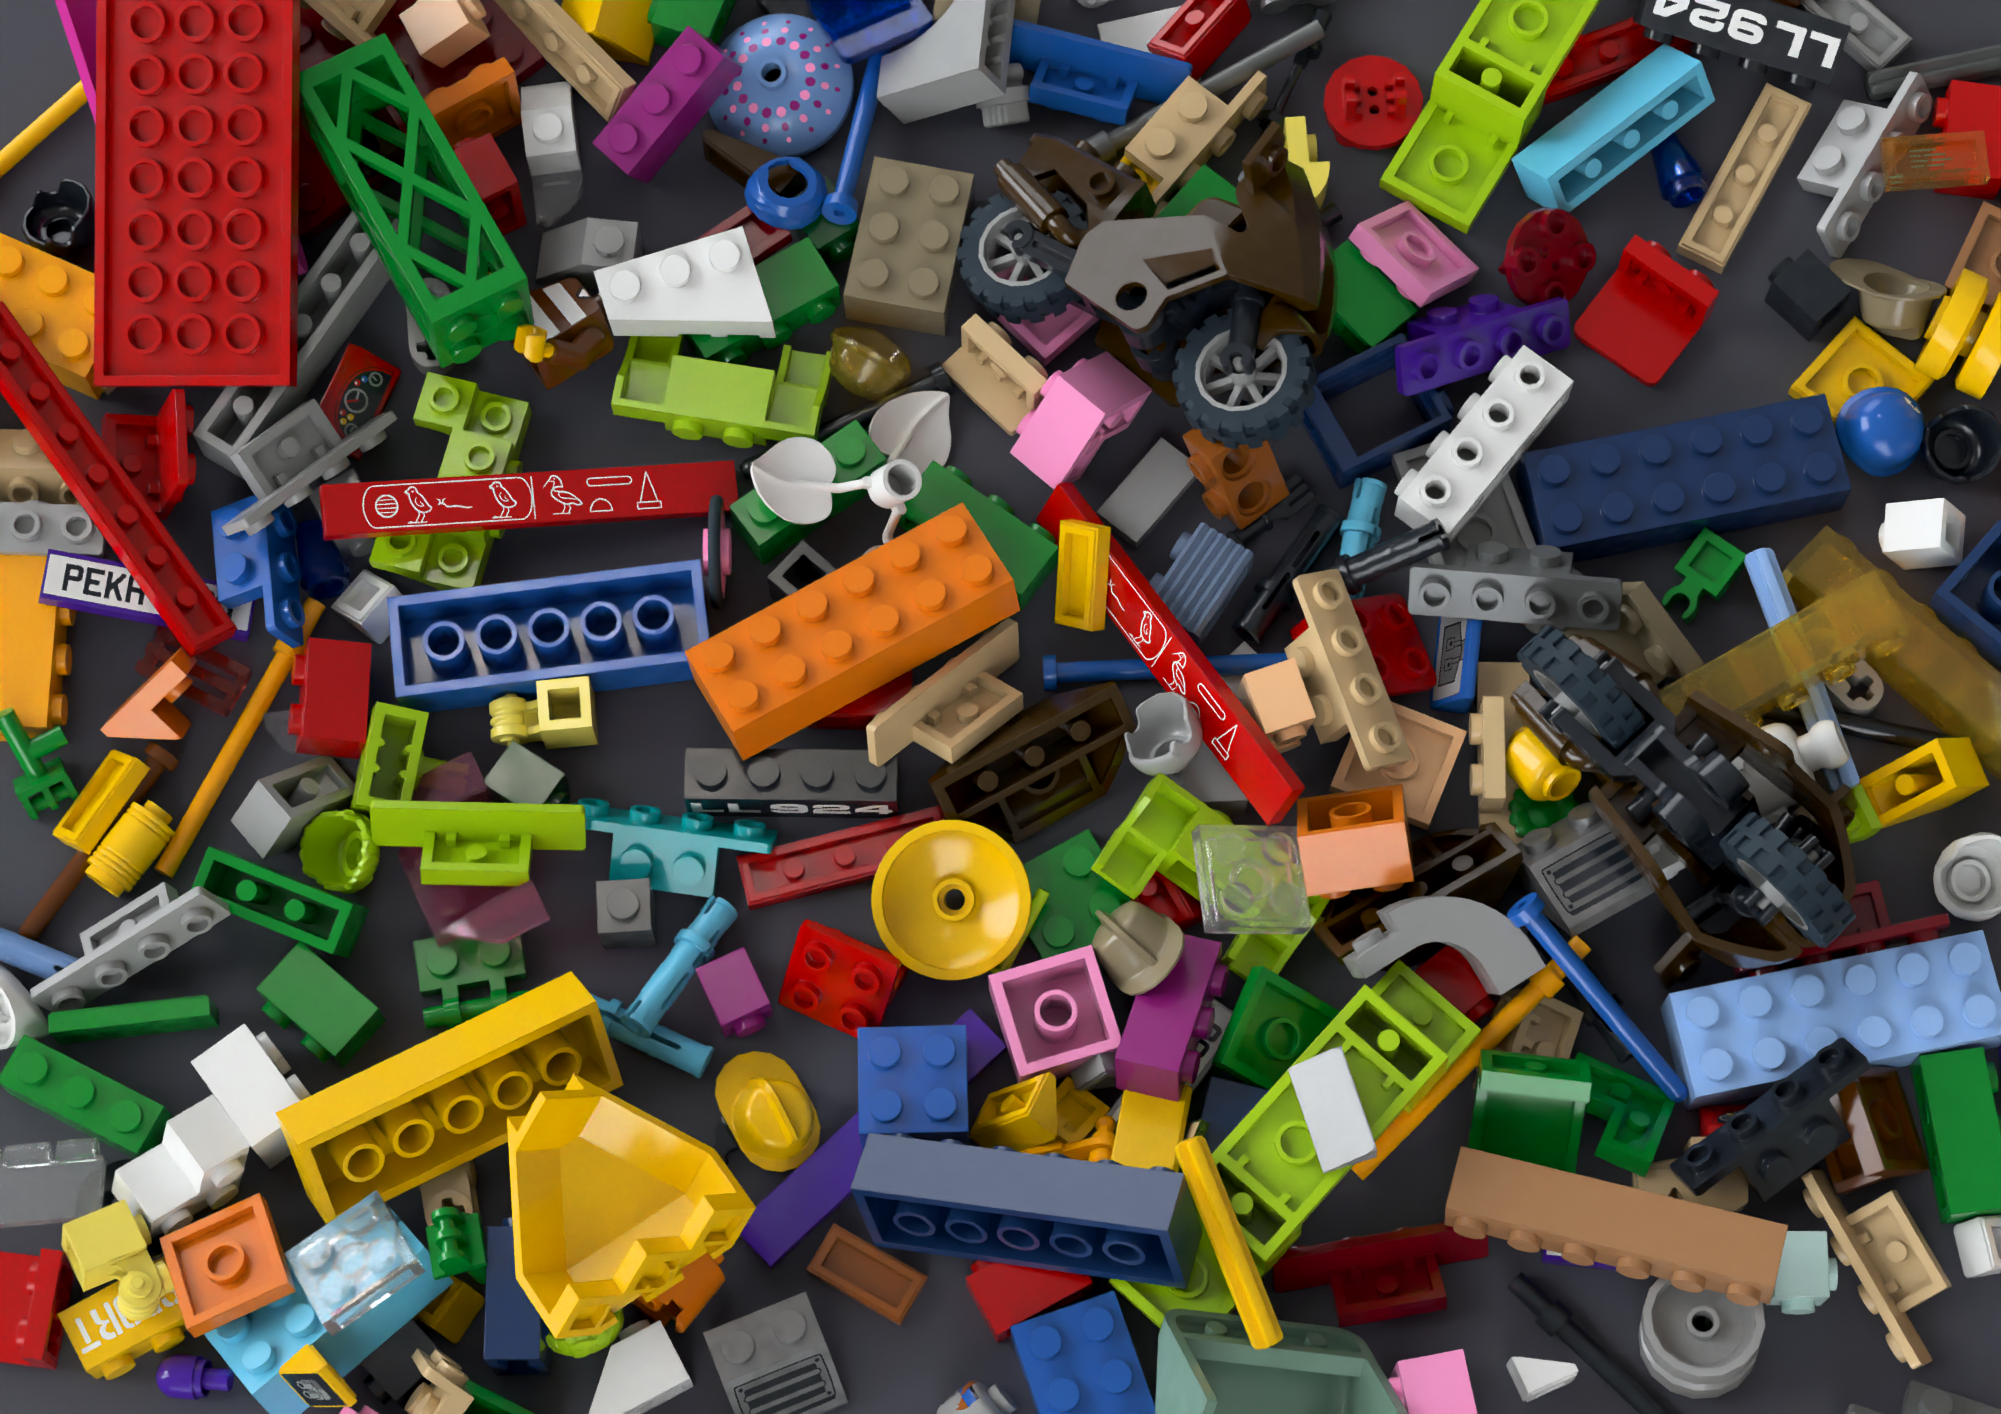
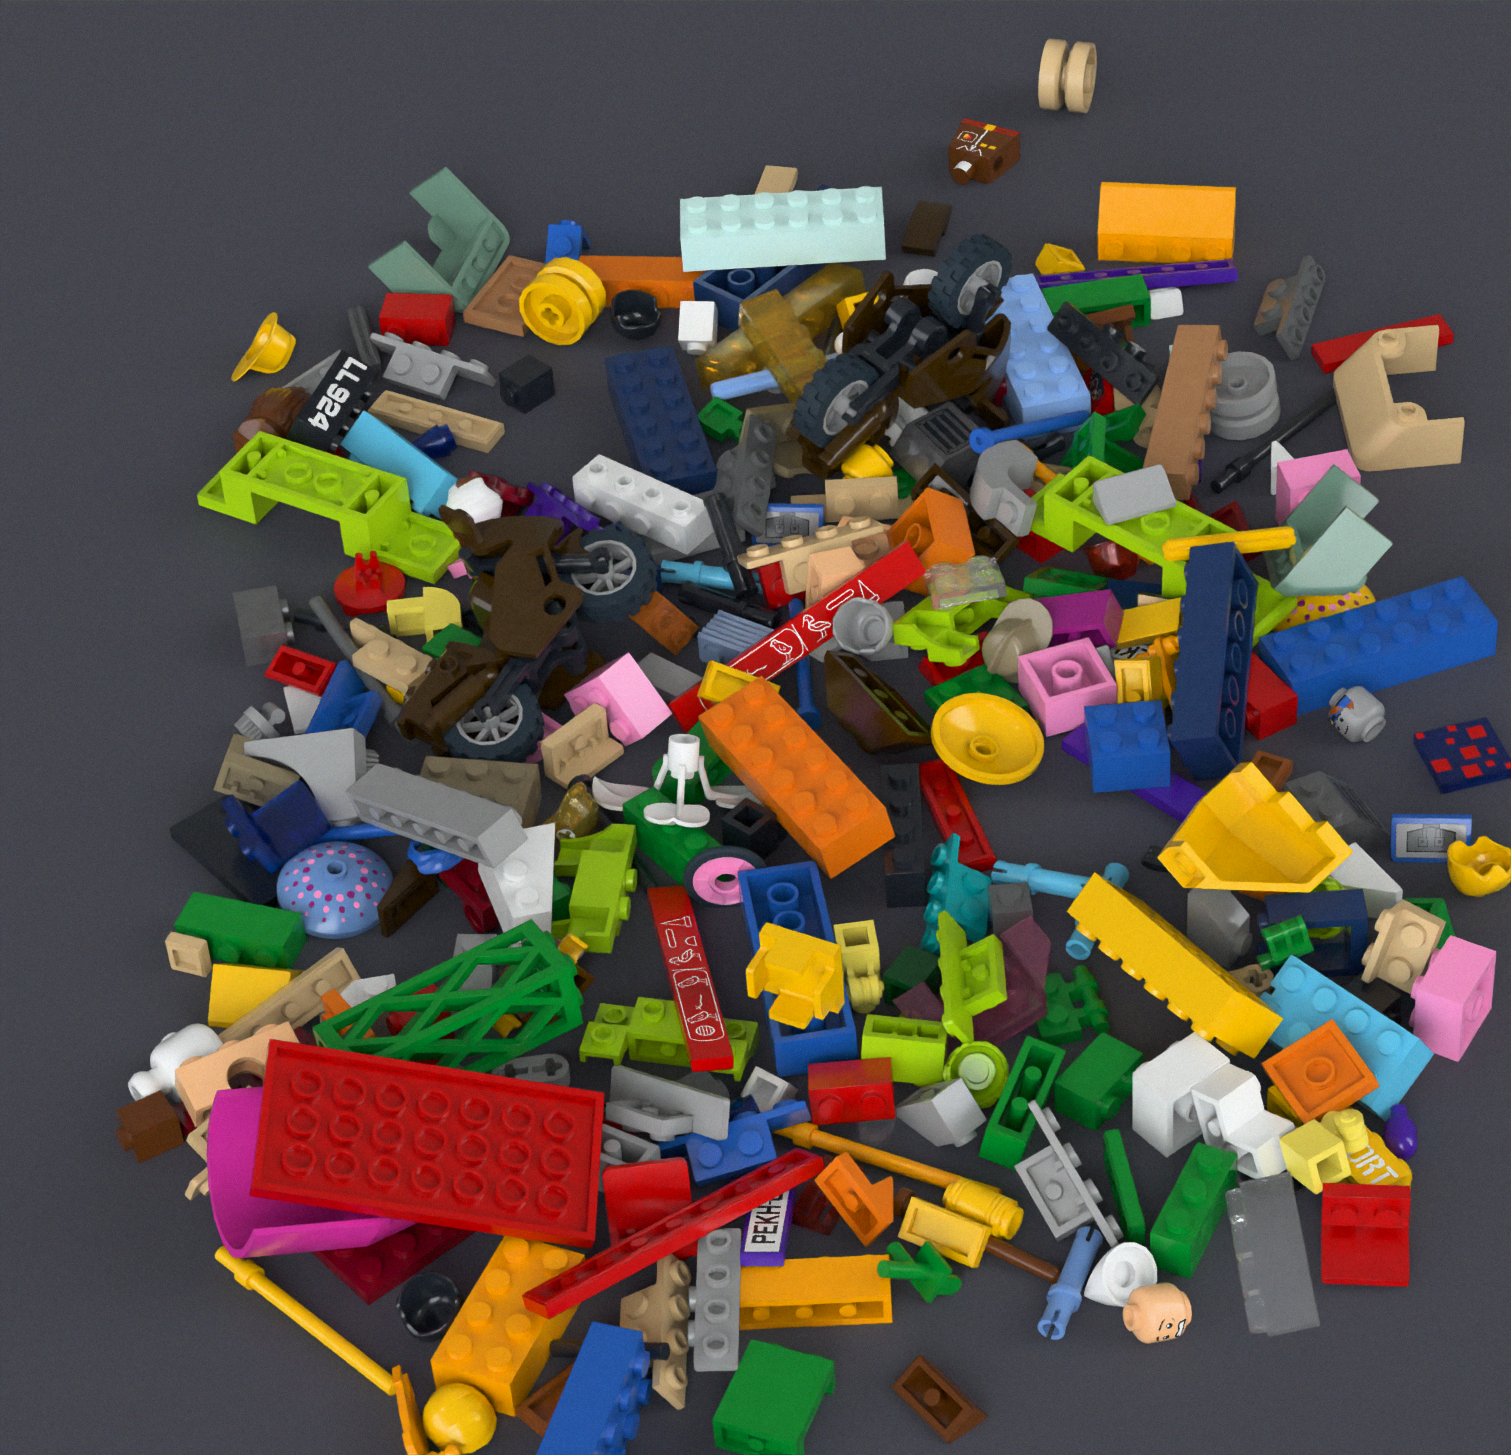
camera: 90 degrees left, 30 degrees down
(316, 1380) = (1400, 1000): slope -> none
(354, 1263) = (1310, 984): clear plate -> none
(448, 610) = (800, 971): none -> yellow panel
(667, 105) = (356, 925): magenta brick -> none
(735, 994) = (1066, 851): magenta brick -> none
(767, 1111) = (1145, 837): yellow piece -> none
(790, 173) = (437, 815): none -> light grey brick
(840, 979) = (1048, 796): red bracket -> none
(955, 704) = (856, 739): tan bracket -> none
(1494, 216) = (475, 498): none -> white hair
(1646, 312) = (530, 452): red bracket -> none
(1857, 362) = (583, 367): yellow tile -> none
(1880, 430) = (620, 339): blue helmet -> none
(1887, 1257) = (1161, 330): tan bracket -> none
(1888, 297) = (533, 339): dark tan piece -> none
(1934, 161) = (439, 319): clear orange tile -> none

